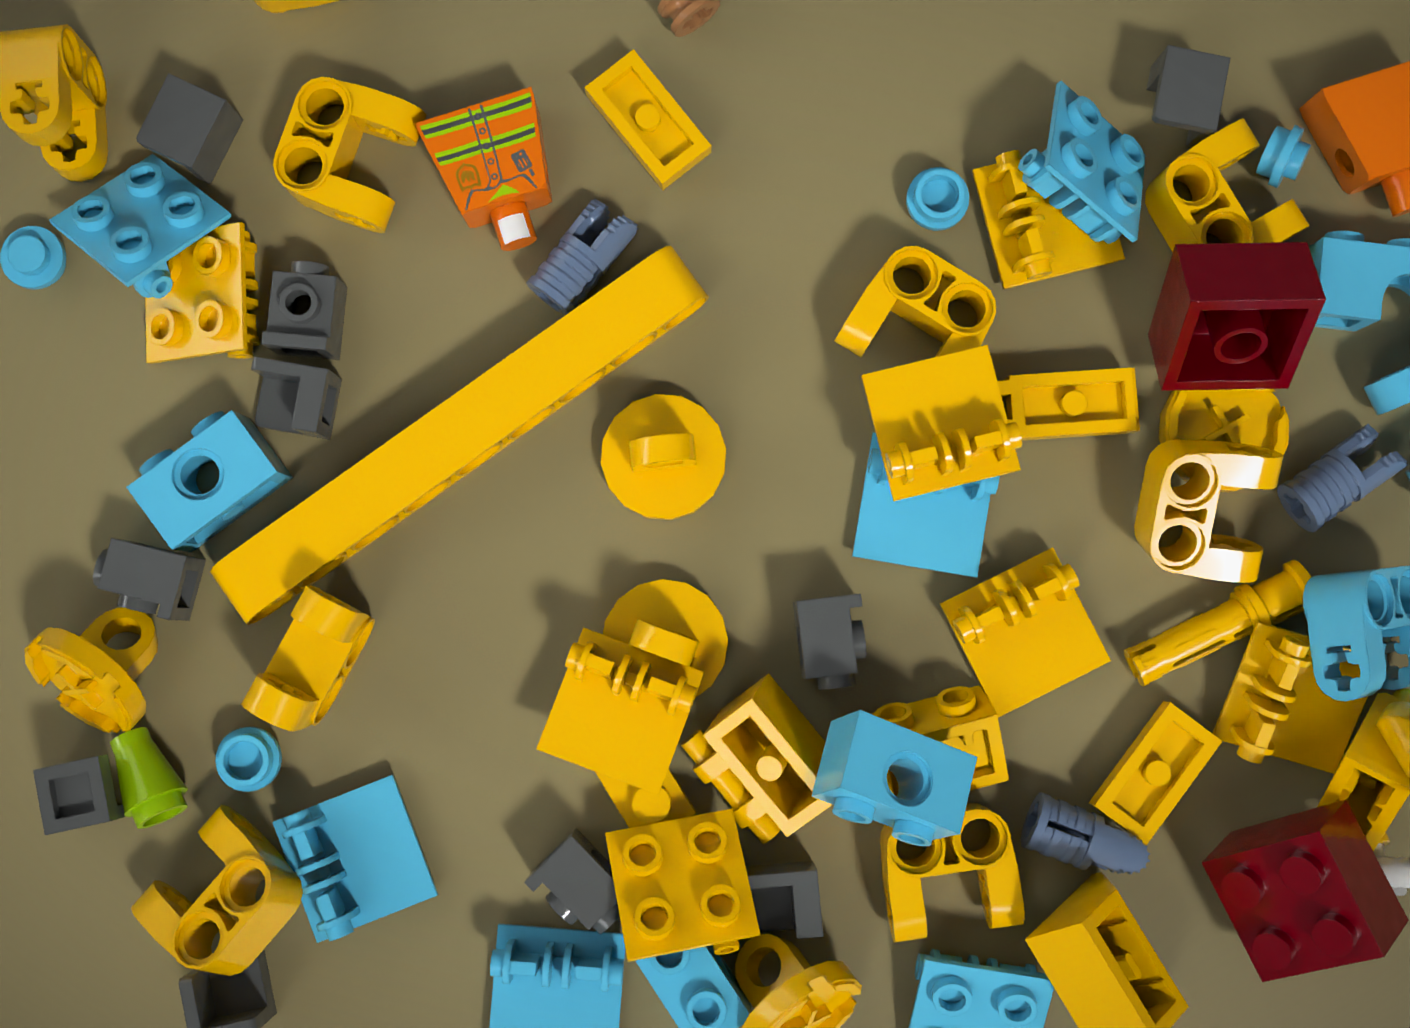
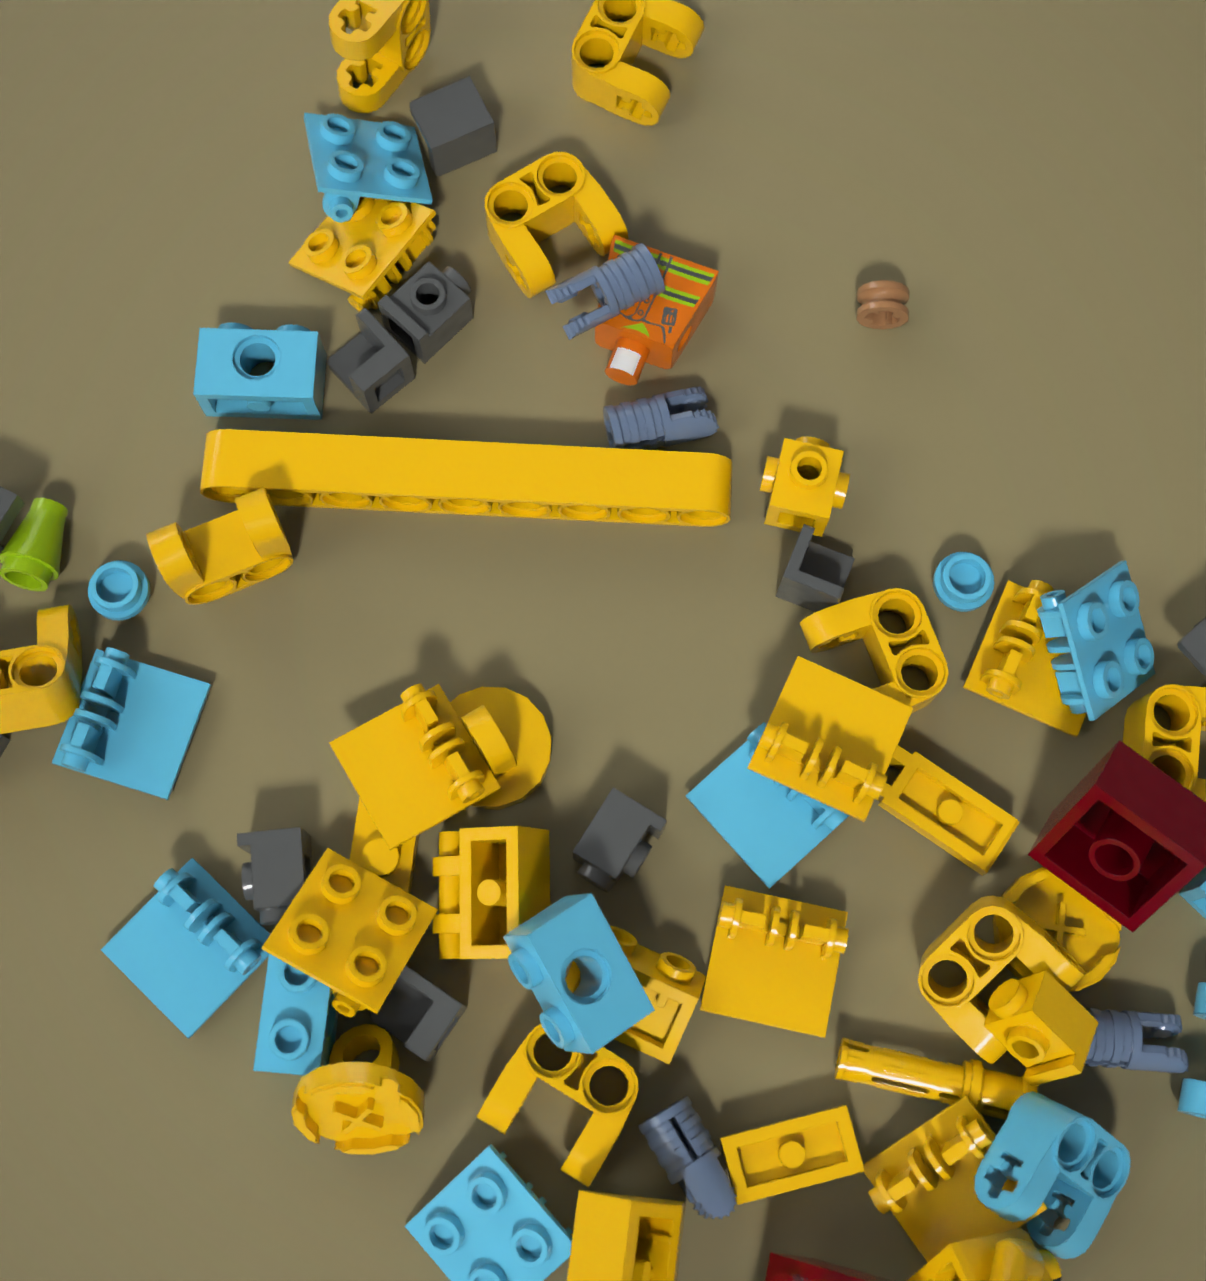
camera: 40 degrees right, 10 degrees down
(33, 257) = (272, 133): medium azure plate -> none
(92, 677) = (64, 437): yellow tile -> none
(149, 578) = (162, 407): dark grey brick -> none
(457, 169) = (616, 286): none -> sand blue hinge
(648, 119) = (788, 362): yellow plate -> none
(663, 457) = (602, 611): yellow tile -> none
(754, 240) = (804, 484): none -> yellow brick
(814, 289) = (814, 574): none -> dark grey panel
(1280, 525) = (1041, 1027): none -> yellow brick

